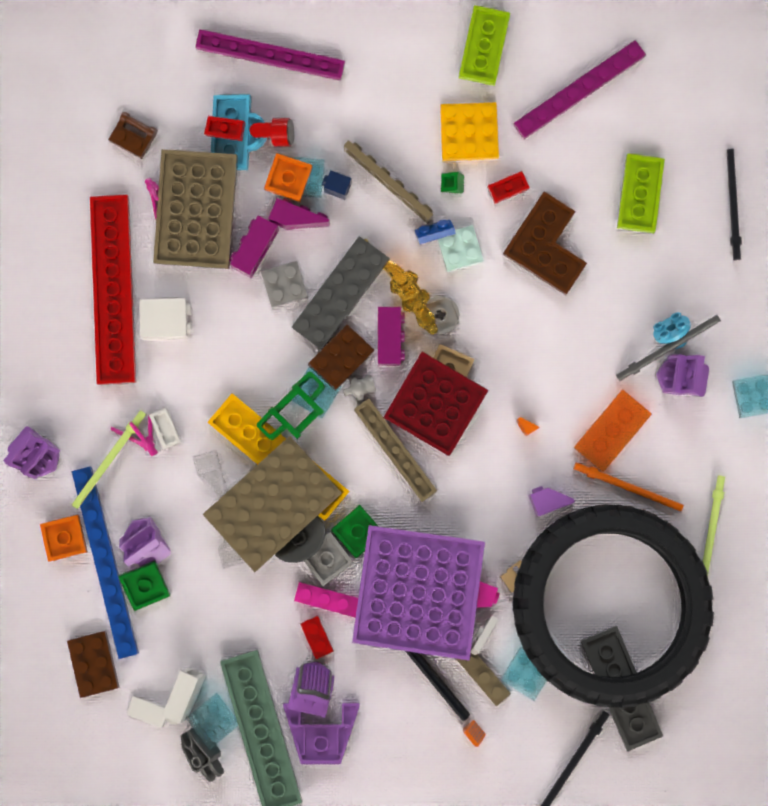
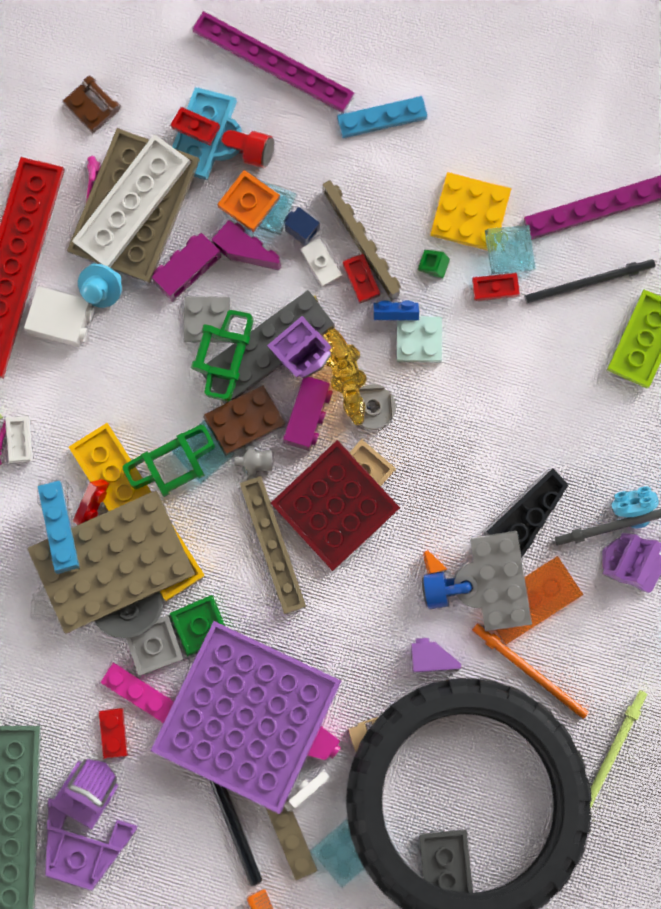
camera: 15 degrees right, 5 degrees down
(189, 283) = (100, 285): none -> medium azure plate
(193, 207) = (131, 201): none -> white plate
(222, 490) = (58, 527): none -> dark azure plate
(241, 456) = (91, 500): none -> red plate
(319, 294) = (223, 335): none -> green bar
(361, 210) = (321, 262): none -> white plate
(370, 287) = (301, 349): none -> medium lavender piece
(373, 74) = (382, 117): none -> dark azure plate
(398, 213) = (361, 278): none -> red plate
(484, 45) = (517, 122): lime plate -> none
(510, 153) = (510, 249): none -> clear light blue plate
(536, 248) = (507, 361): reddish brown plate -> none
(577, 427) = (489, 582): none -> light grey plate
(588, 366) = (530, 509): none -> black wedge
(611, 140) = (631, 270): none -> black bar

